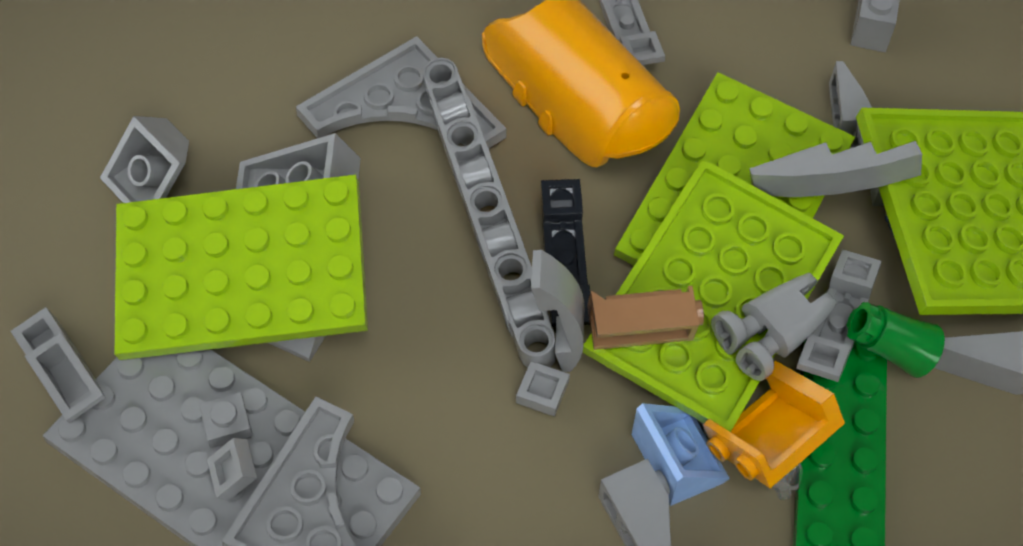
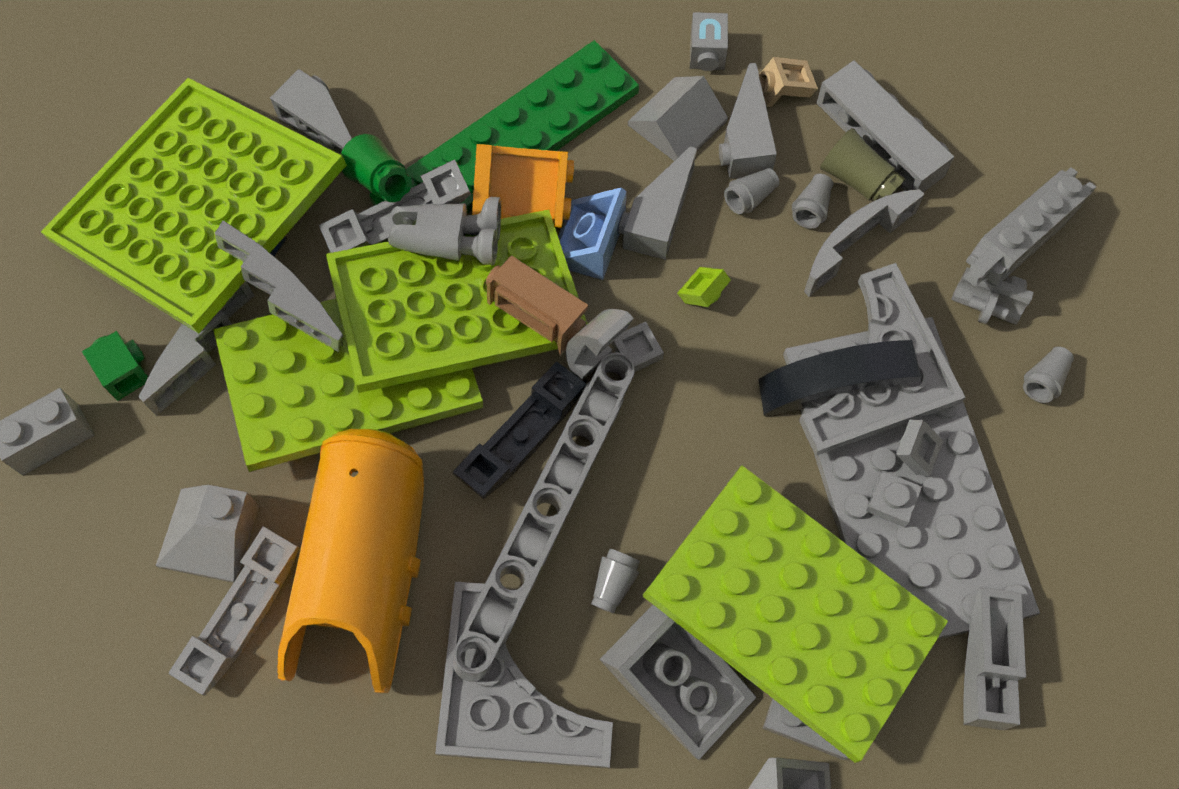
camera: 135 degrees left, 10 degrees up
(340, 475) = (838, 372): none -> black slope
(398, 216) = (614, 580): none -> light grey cone
(537, 482) = (704, 286): none -> lime plate
(702, 47) = (209, 532): none -> light grey slope
(891, 79) = (117, 364): none -> green brick

